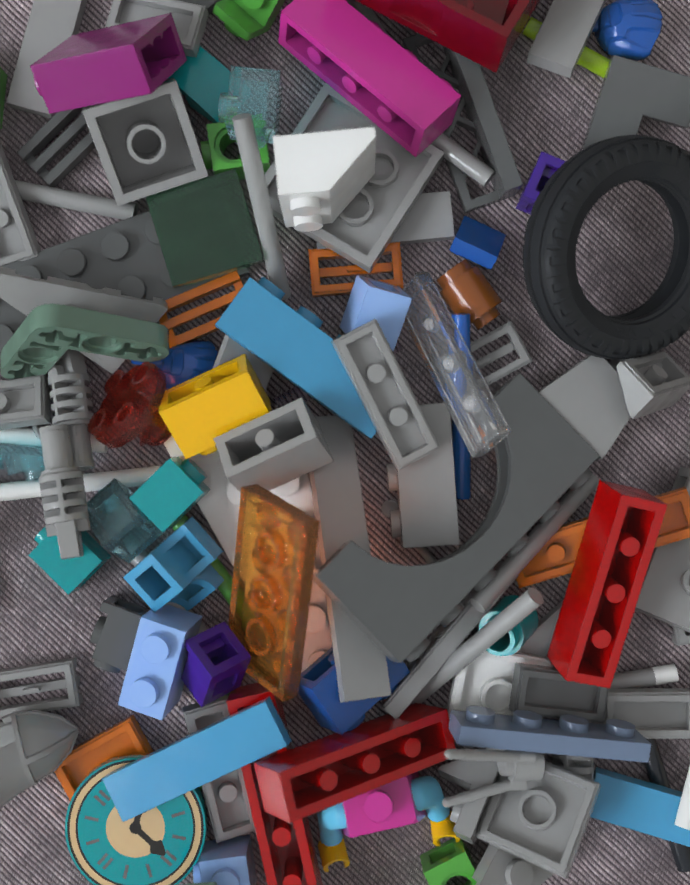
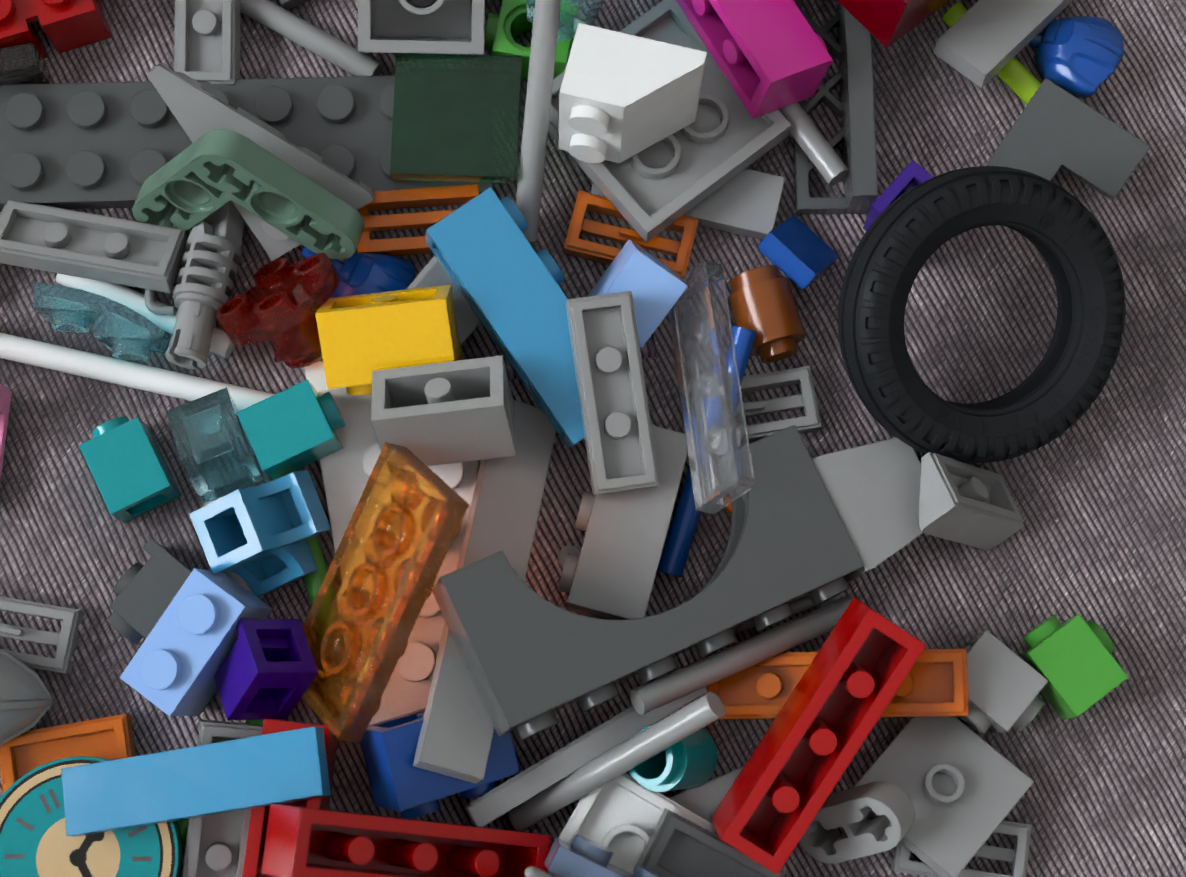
camera: 15 degrees right, 10 degrees down
(62, 492) = (155, 377): light grey hinge -> none
(655, 626) = (861, 835): none -> light grey beam

